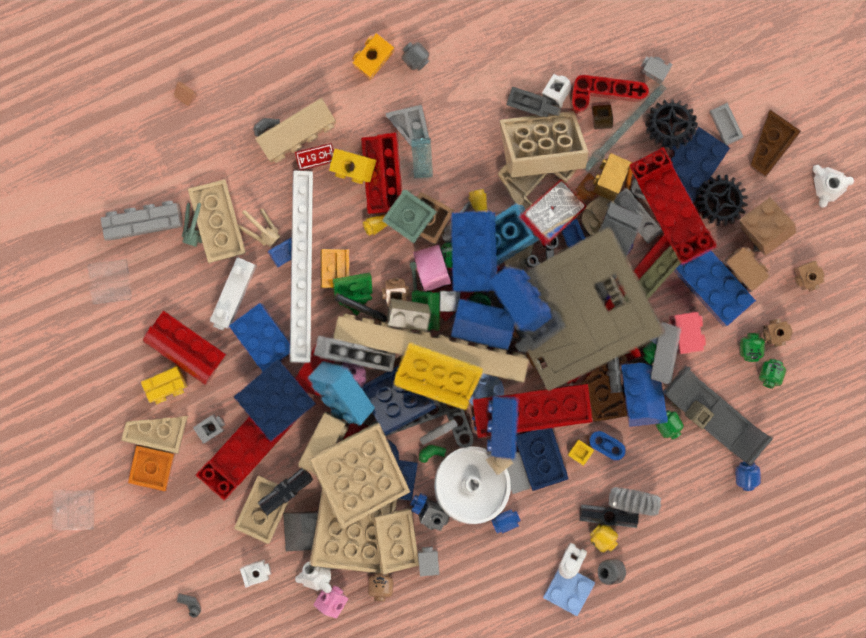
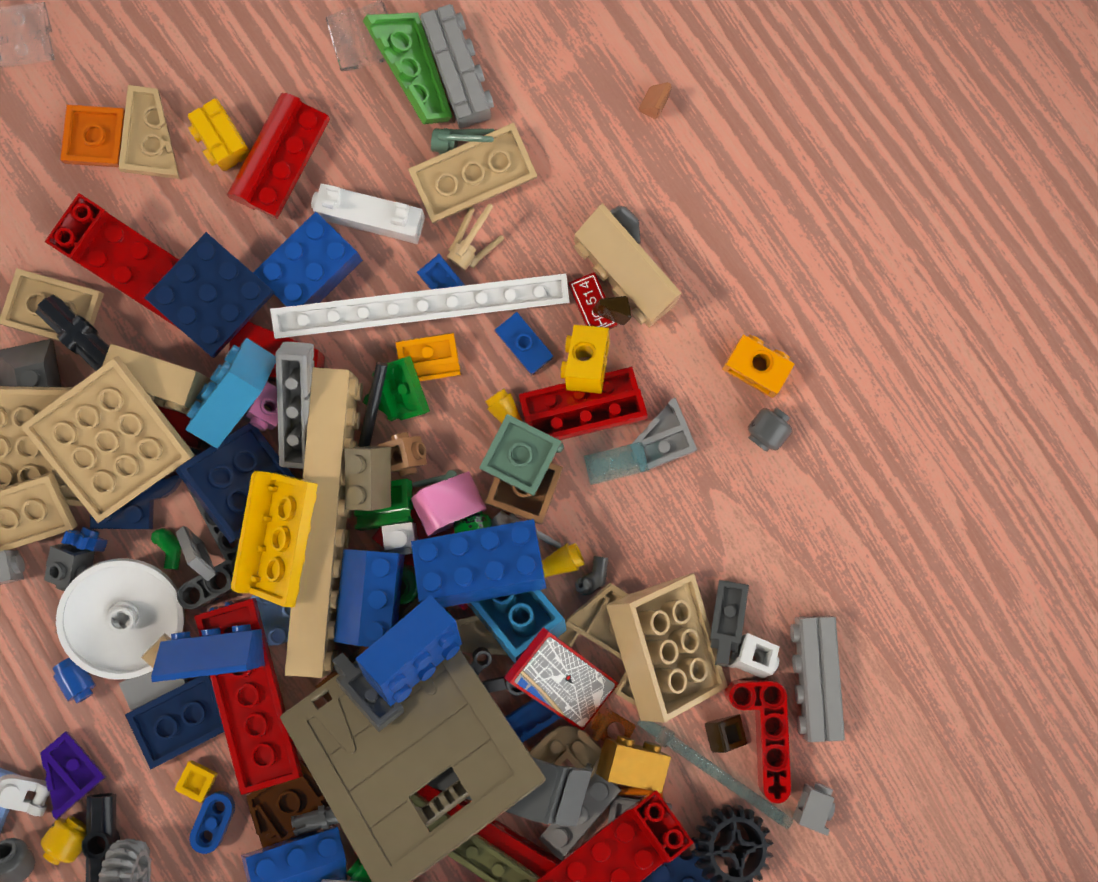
camera: 80 degrees right, 5 degrees down
(135, 250) = (411, 61): none -> bright green wing
(203, 431) = (156, 203): light grey brick -> none
(323, 141) = (614, 309): none -> dark brown slope
(334, 205) = (524, 343): none -> blue plate
(493, 182) = (594, 580): none -> dark grey arm
(563, 531) = (68, 773): none -> dark purple wing
(576, 52) = (818, 679): none -> light grey brick

